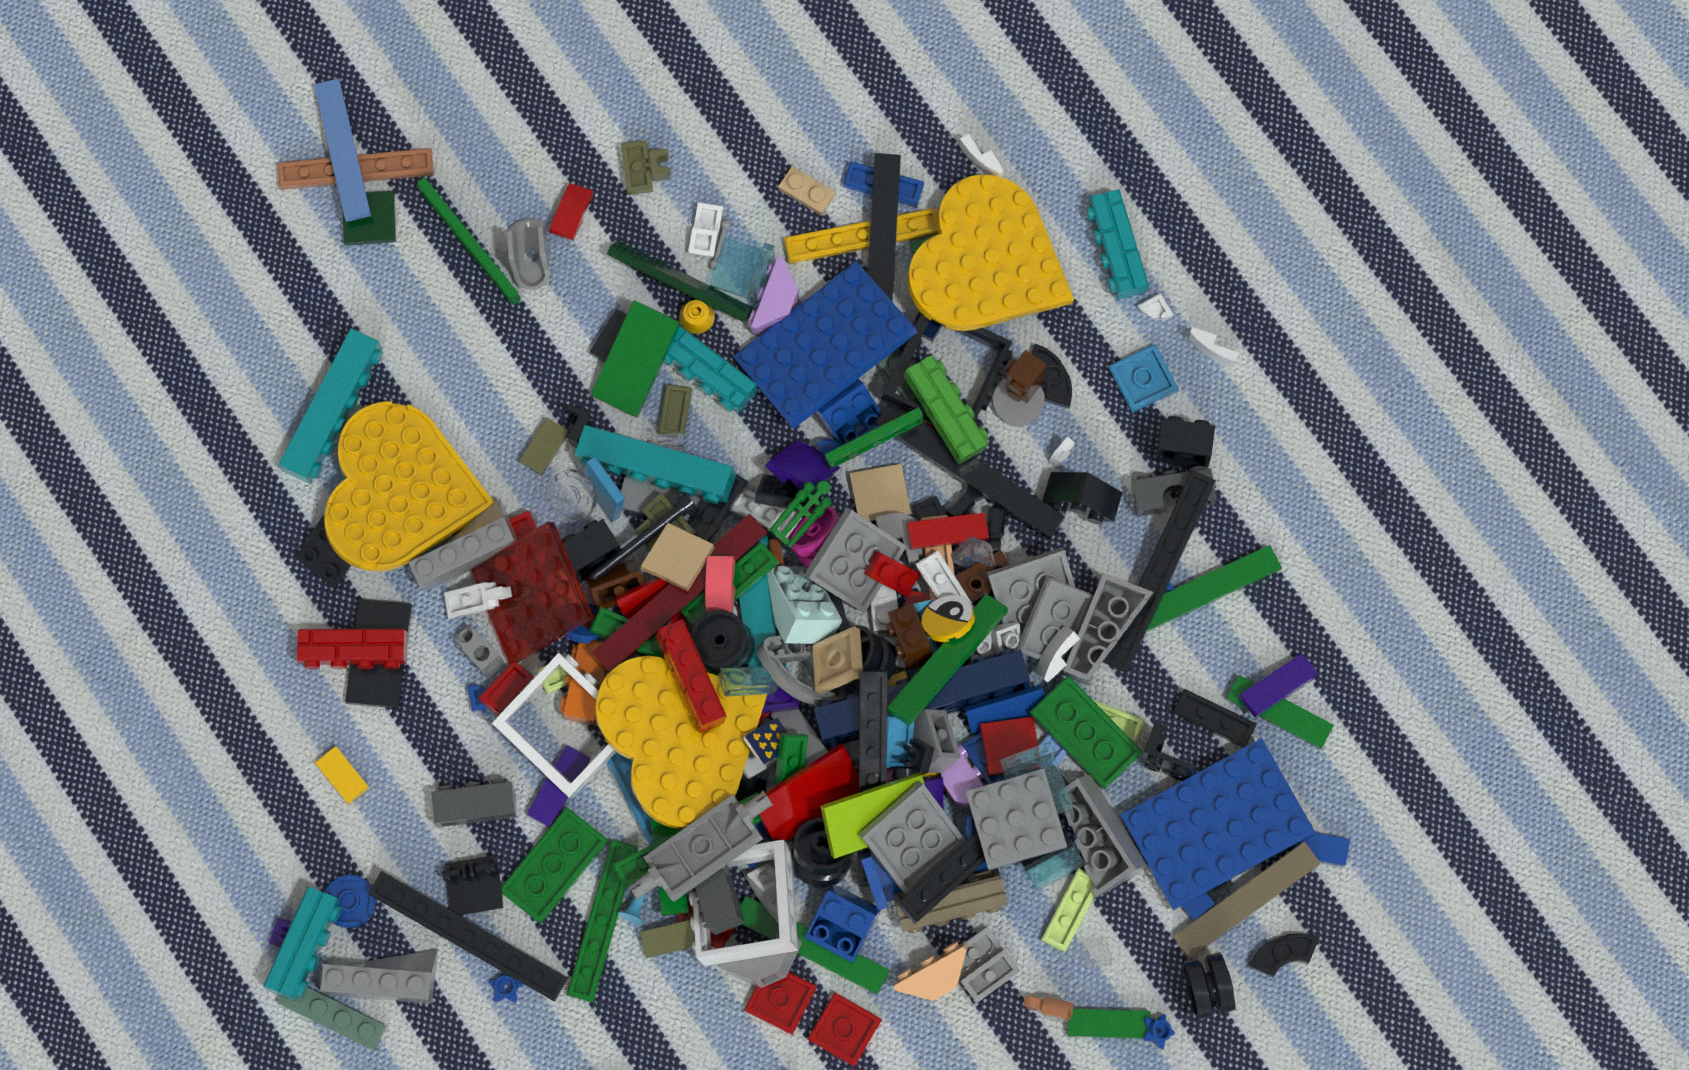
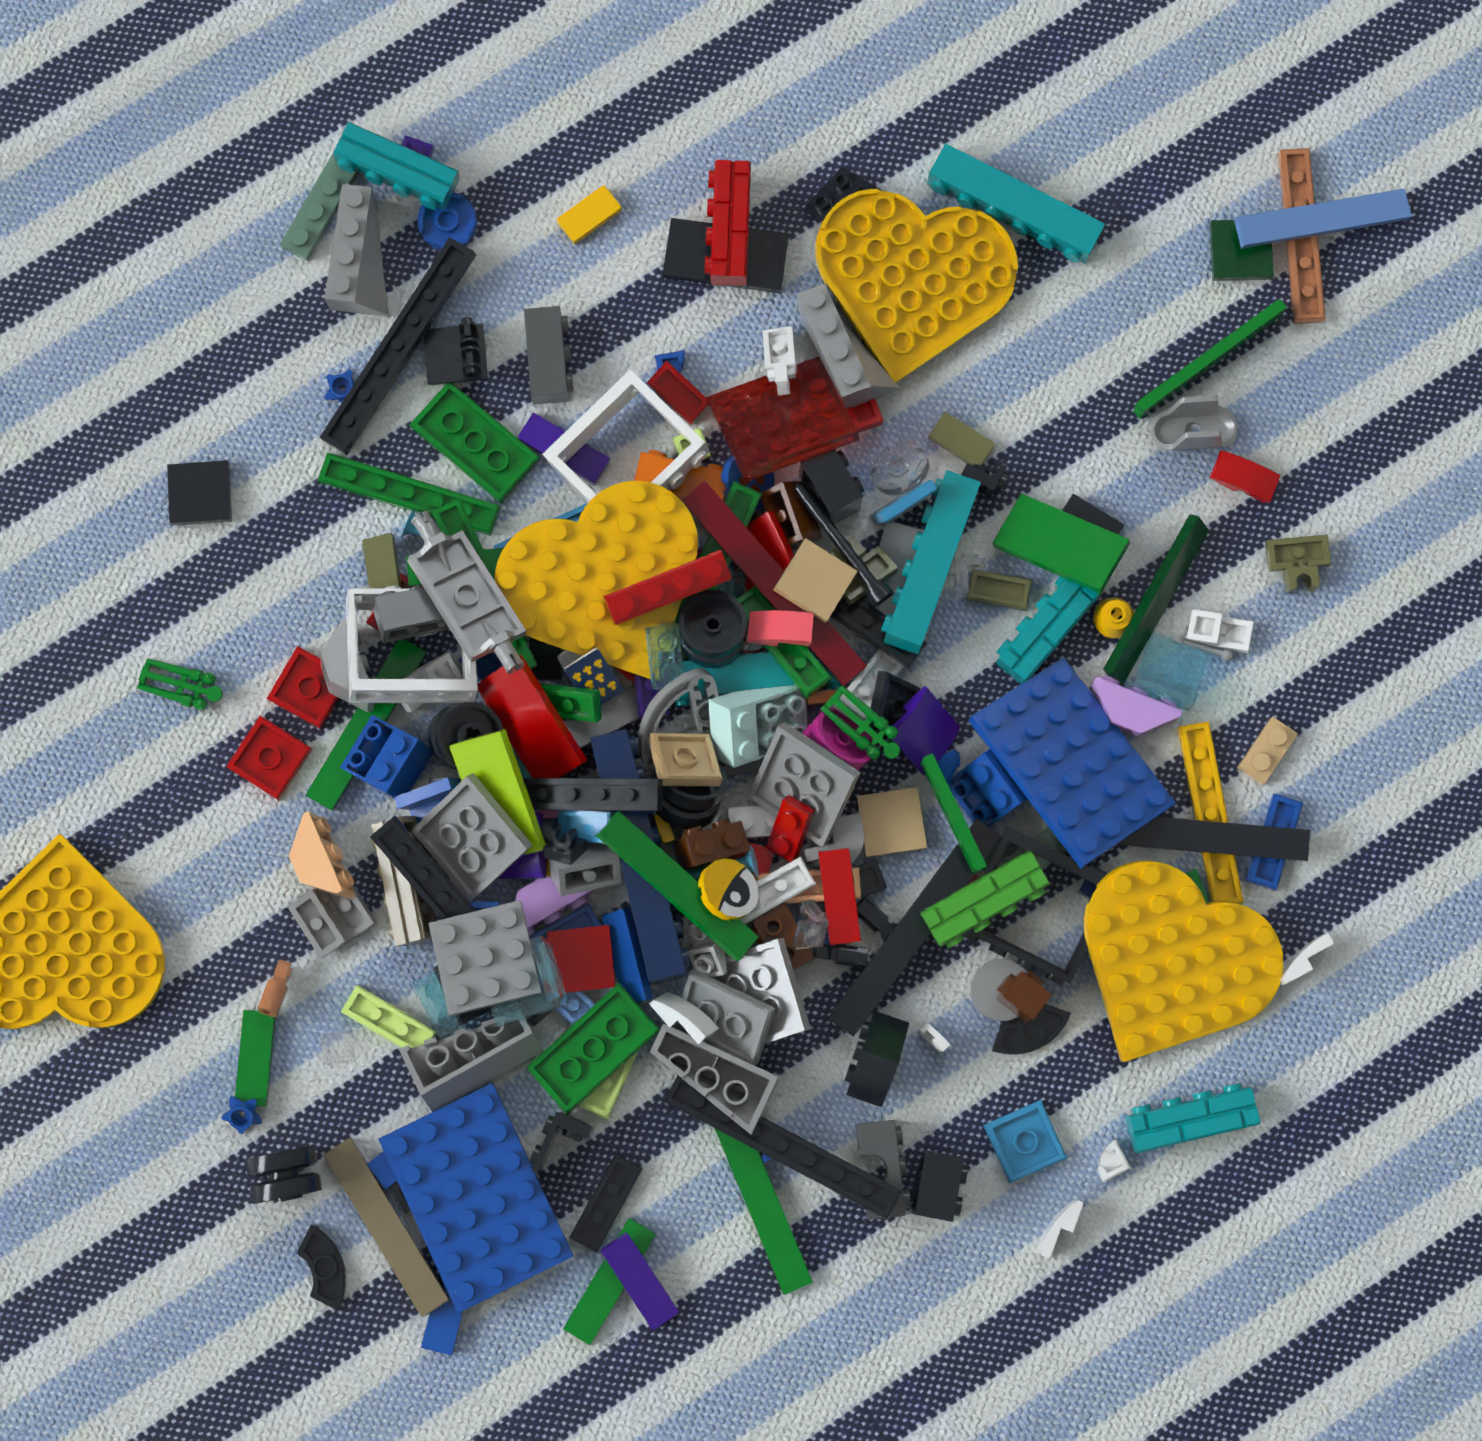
camera: 85 degrees right, 5 degrees up
(478, 650) = (722, 362): light grey leg -> none

